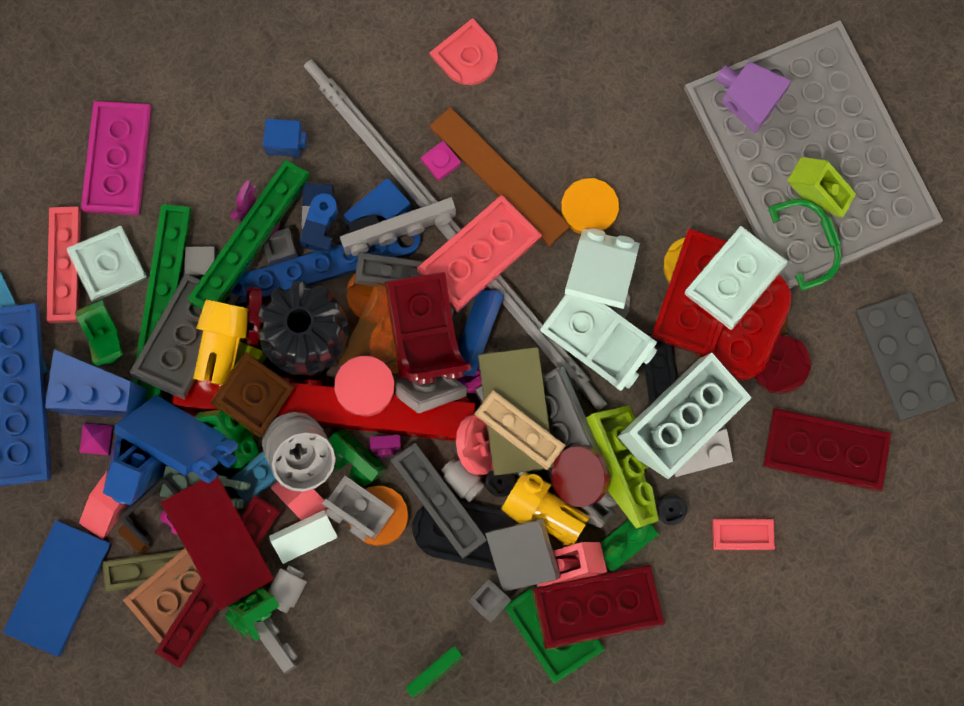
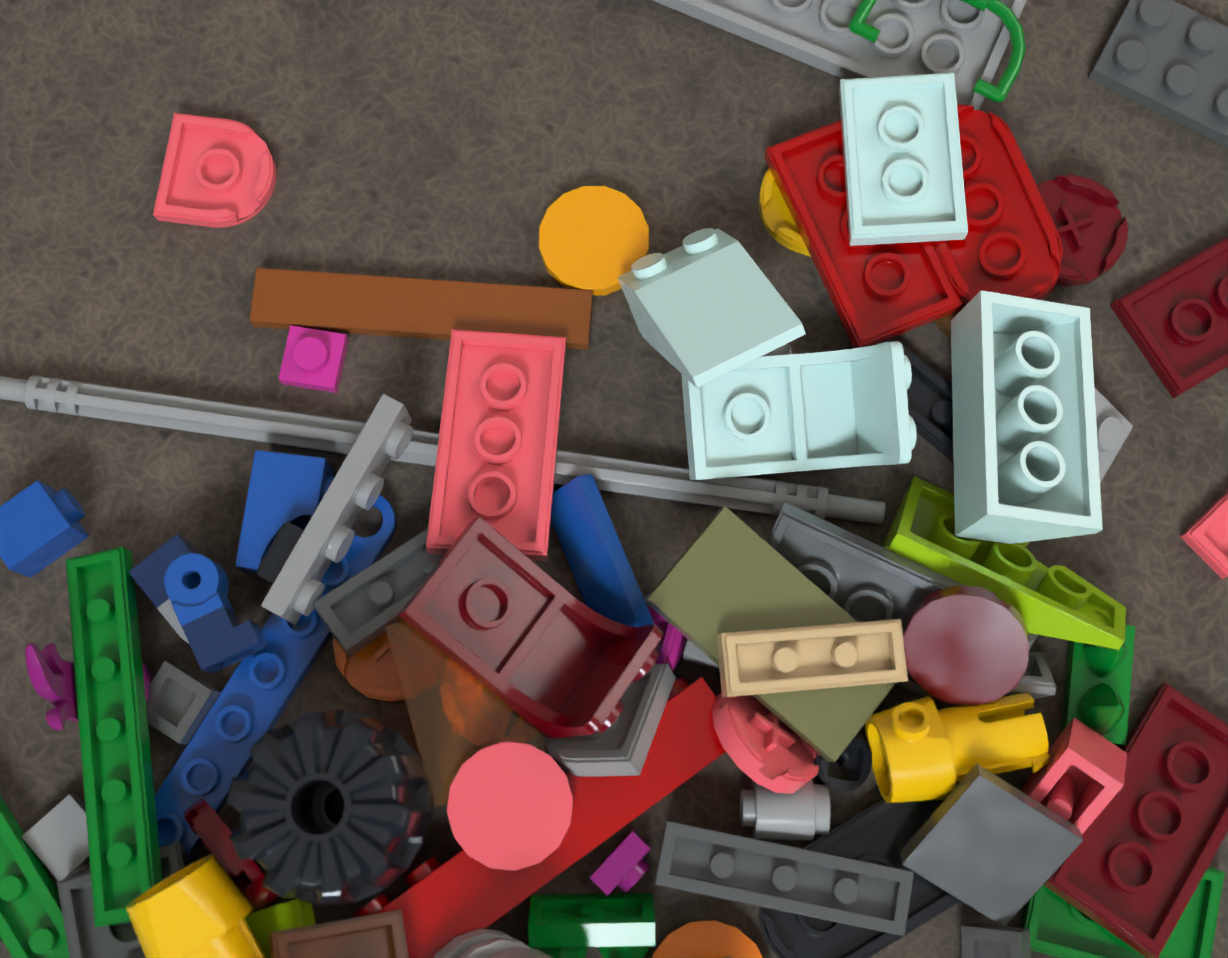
camera: 45 degrees left, 0 degrees up
(671, 509) = (1117, 572): black tile -> none

